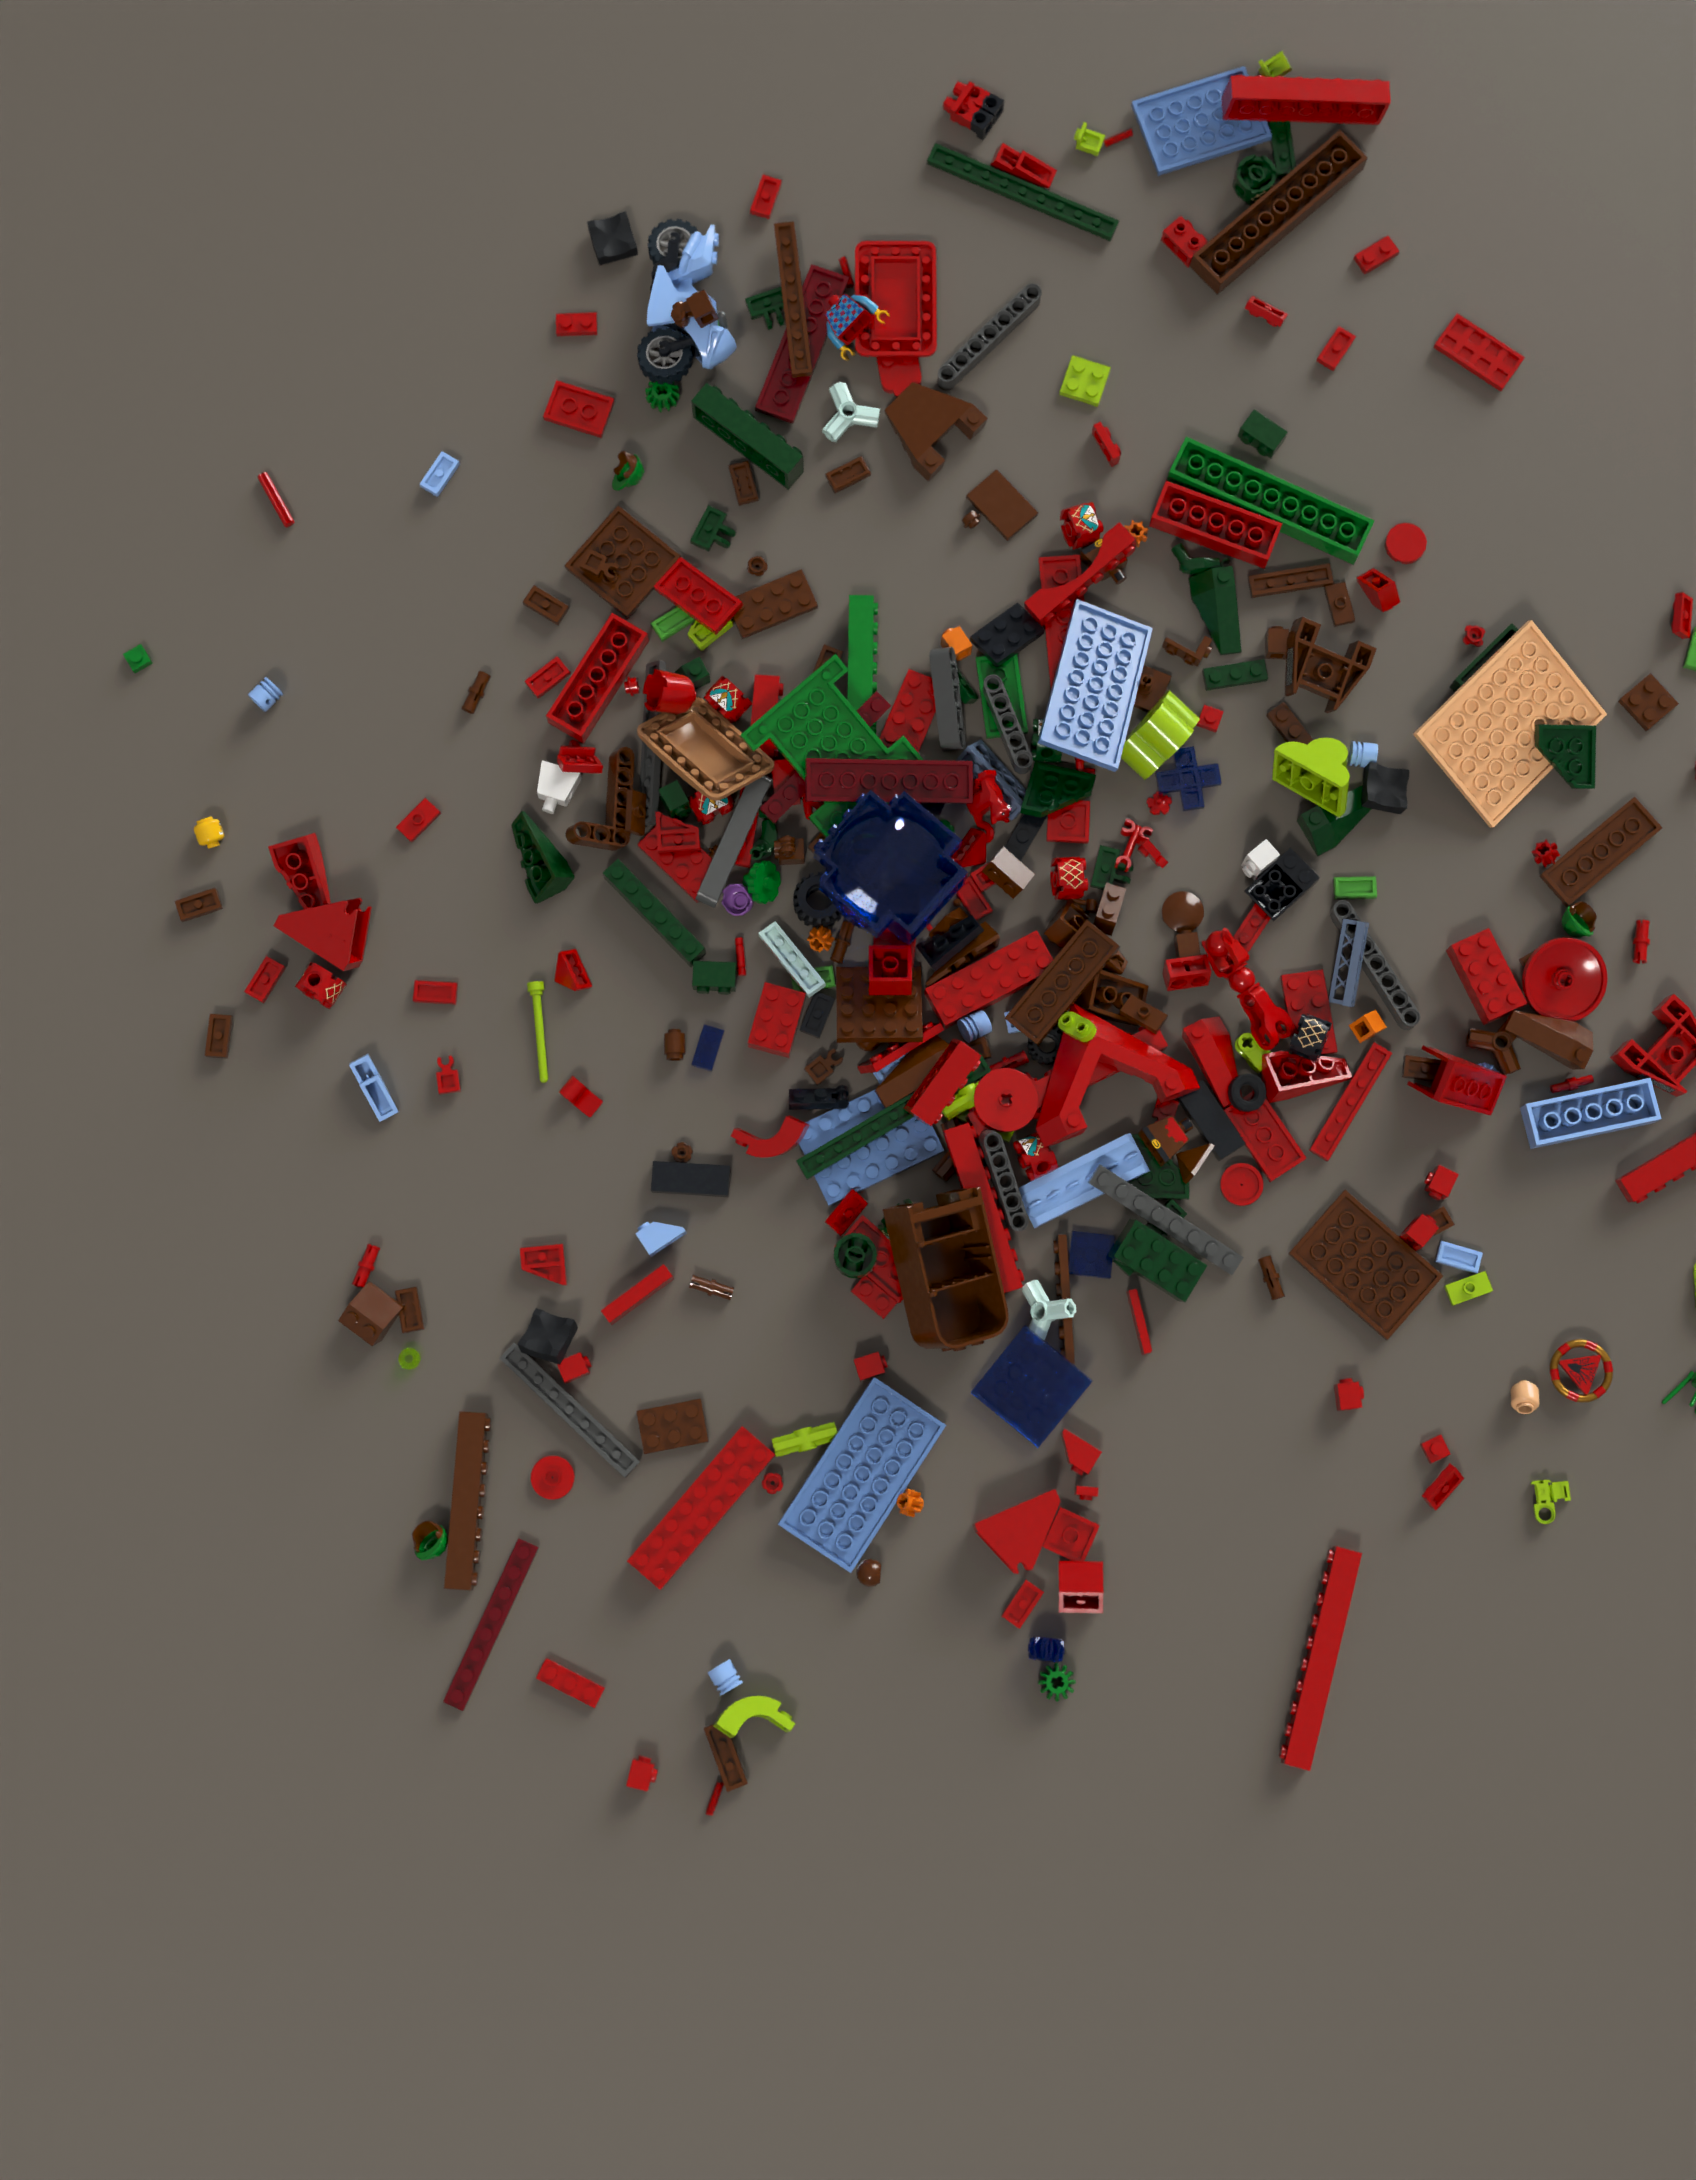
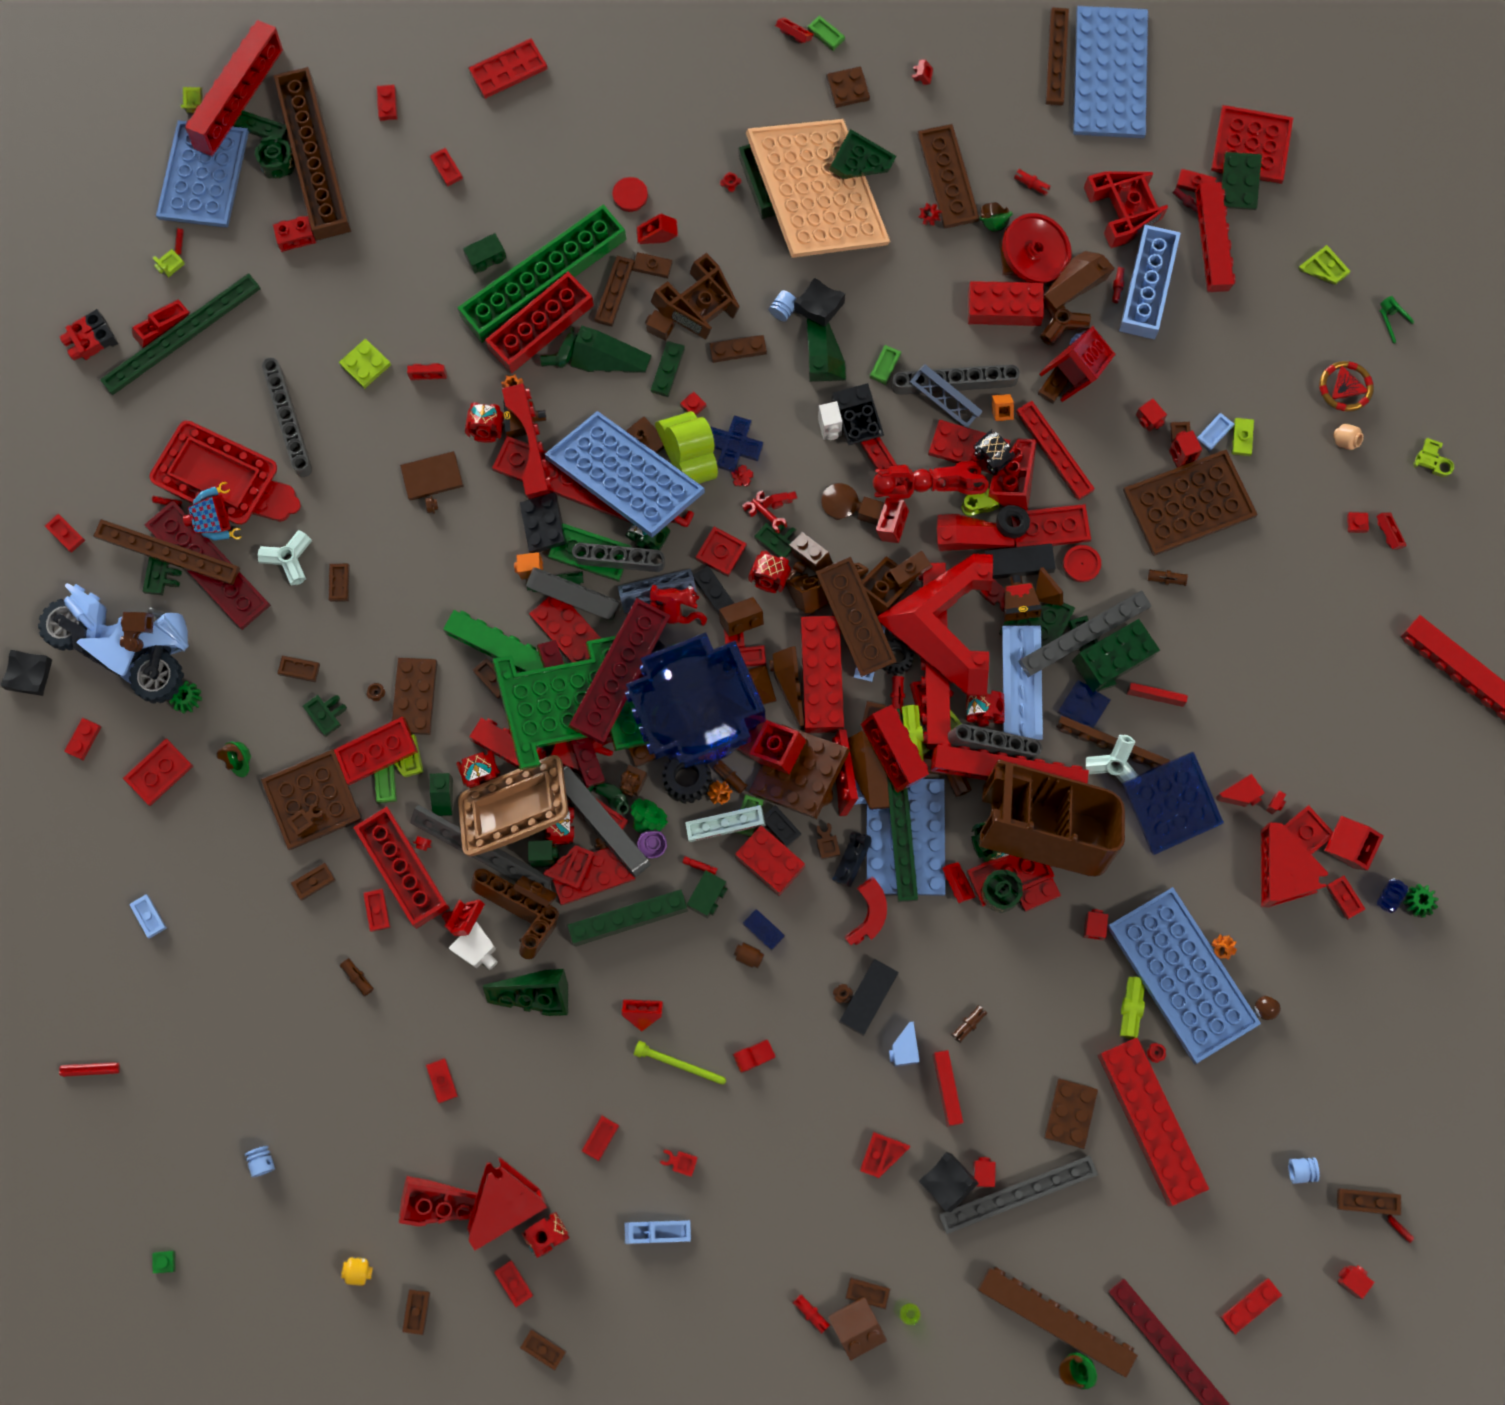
camera: 60 degrees left, 5 degrees down
(552, 1467) = (1064, 1246): red piece -> none
(668, 692) = (448, 813): red cylinder -> none
(747, 435) = (262, 644): dark green brick -> none
(753, 1706) = (1338, 1167): lime arch -> none
(924, 417) = (327, 499): reddish brown wedge -> none
(947, 945) = (778, 694): black wing -> none
(972, 849) = (700, 627): red slope -> none
(974, 1026) = (854, 705): light blue piece -> none
(1006, 1083) = (923, 719): red piece -> none
(1055, 788) = (691, 547): dark green plate -> none
(1073, 1025) = (898, 622): lime plate -> none
(1189, 657) = (635, 395): reddish brown bracket -> none
(1260, 308) = (392, 199): red plate -> none
(1315, 772) = (783, 344): lime brick -> none
(1348, 1395) = (1288, 565): red brick -> none

